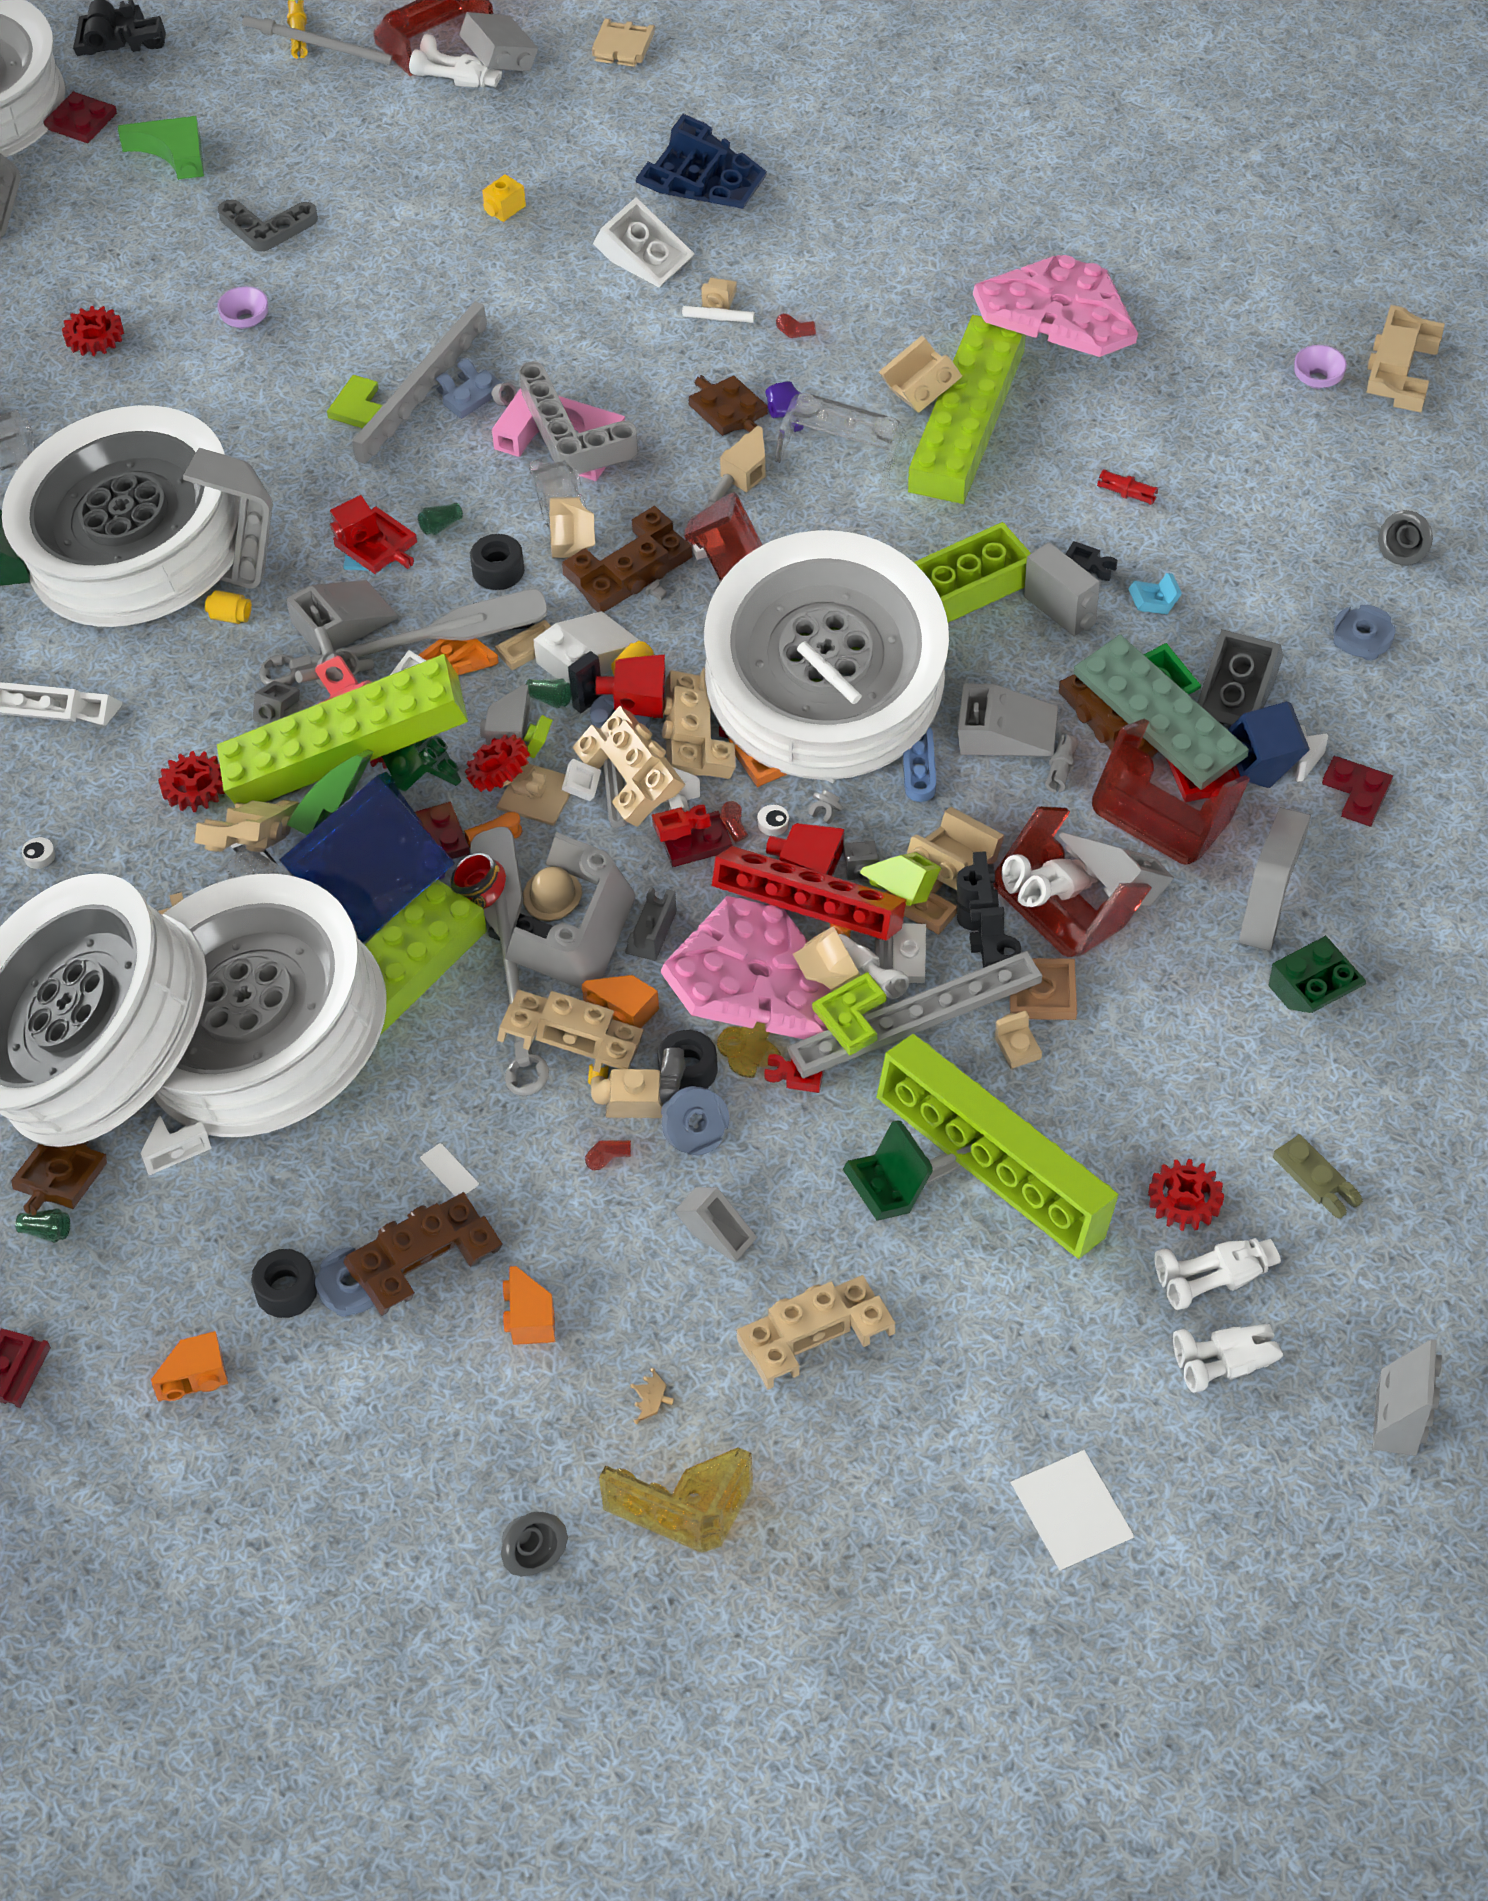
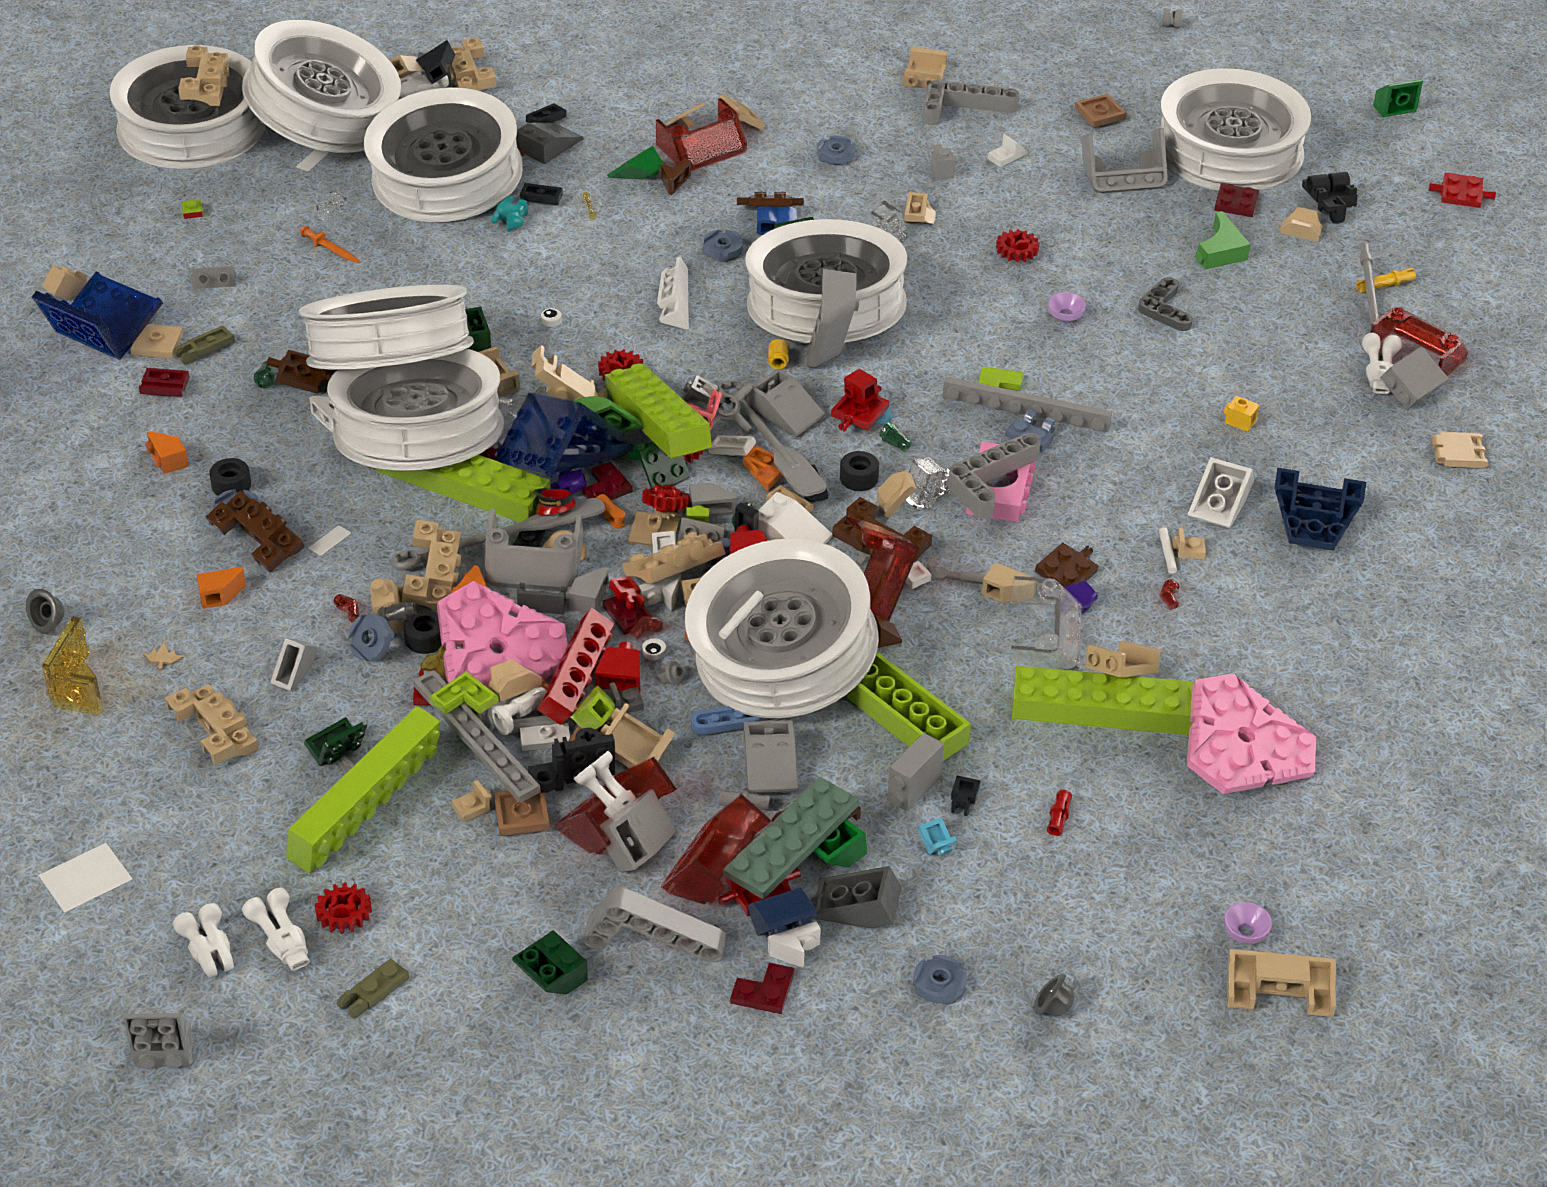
camera: 75 degrees right, 10 degrees down
(159, 71) = (1302, 224): none -> tan slope
(566, 735) = (712, 531): none -> light grey hinge
(654, 867) = (588, 590): none -> light grey slope

